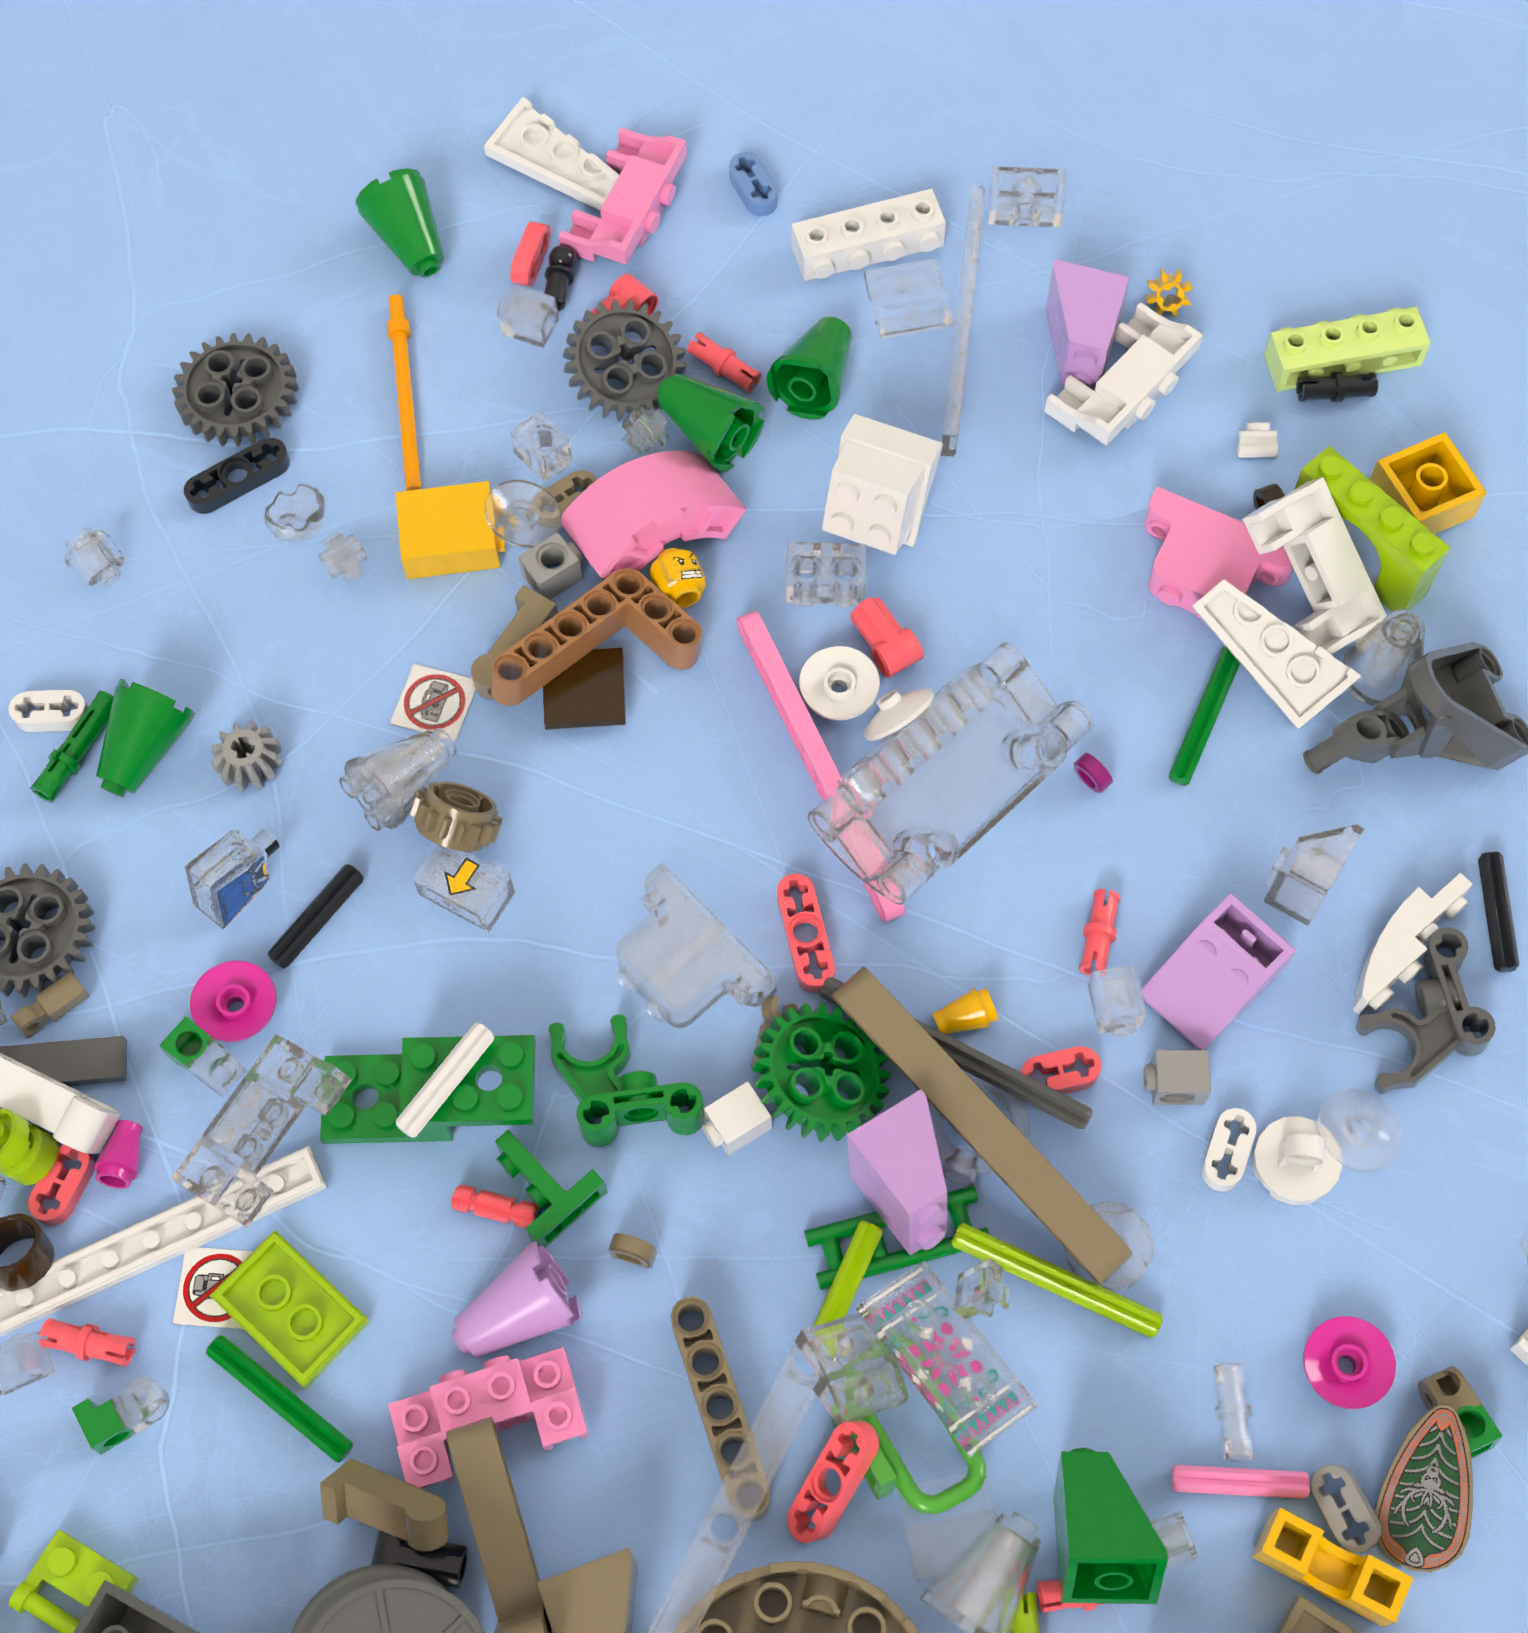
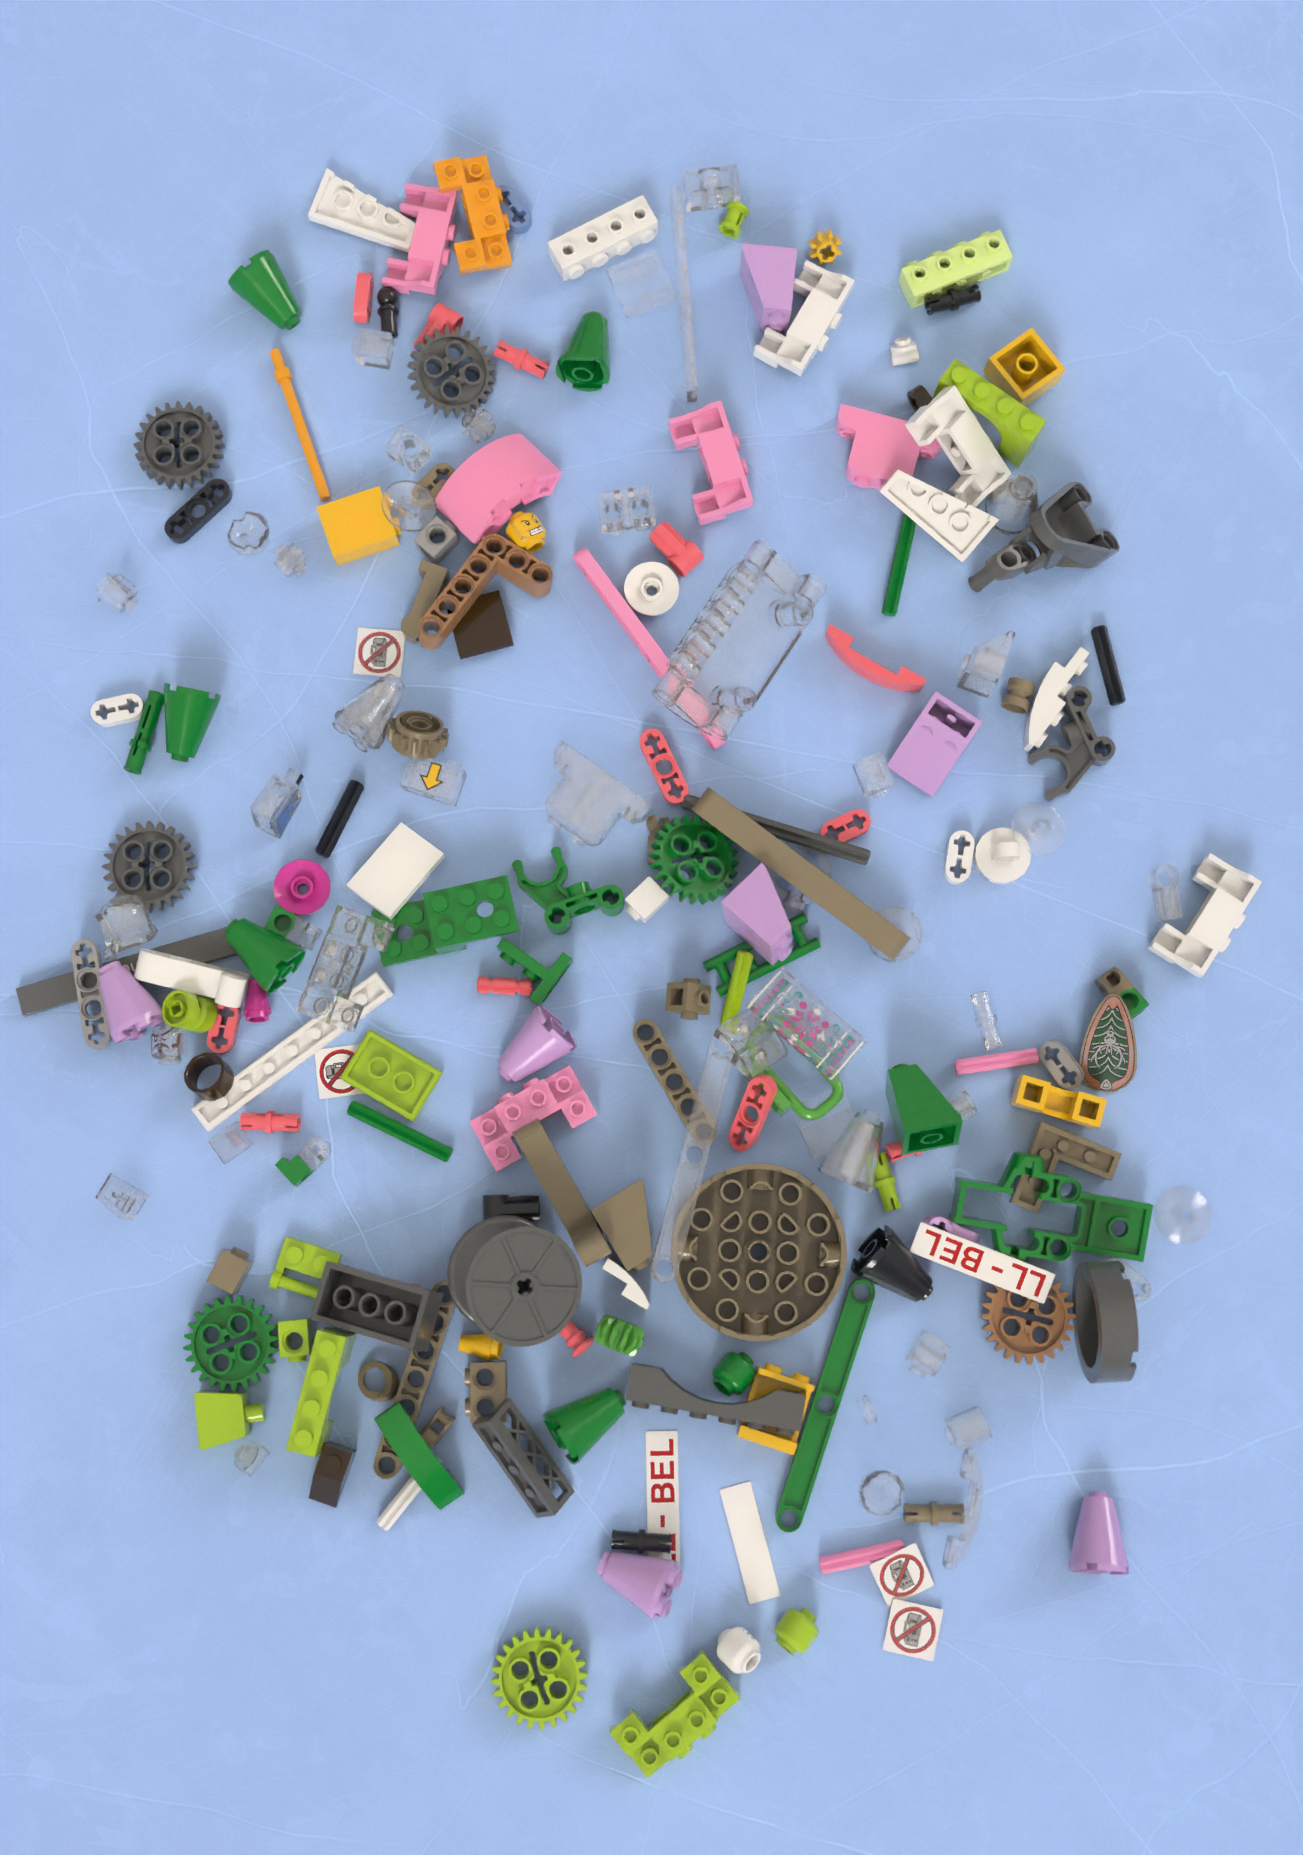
camera: 15 degrees left, 15 degrees up
(50, 1004) = (182, 912): dark tan bar -> none
(150, 1085) = (264, 953): none -> green cone
(240, 744) = (253, 712): light grey gear -> none
(375, 1004) = (395, 870): none -> white tile
(385, 1504) = (485, 1182): dark tan leg -> none
(444, 1080) = (458, 916): white axle -> none
(632, 1250) = (598, 996): dark tan tile -> none
(712, 418) = (522, 407): green cone -> none
(715, 190) = (483, 213): none -> light orange bracket
(777, 1276) = (688, 998): none -> dark tan brick
(880, 484) = (652, 440): white piece -> none
(897, 712) = (696, 604): white dish -> none
(967, 1013) = (779, 801): yellow cone -> none
(973, 535) = (720, 457): none -> bright pink bracket
(980, 1290) = (820, 978): clear tile -> none
(1049, 241) = (733, 219): none -> lime bush
(1058, 1280) = (865, 962): lime axle -> none
(1092, 773) = (828, 617): magenta tile -> none
(1099, 931) = (854, 730): coral pin -> none
(1178, 1077) = (920, 817): light grey brick -> none
(1184, 875) = (904, 681): none -> coral slope
(1355, 927) = (1018, 694): none -> dark tan wheel
(1367, 1350) = (1063, 969): dark pink dish -> none

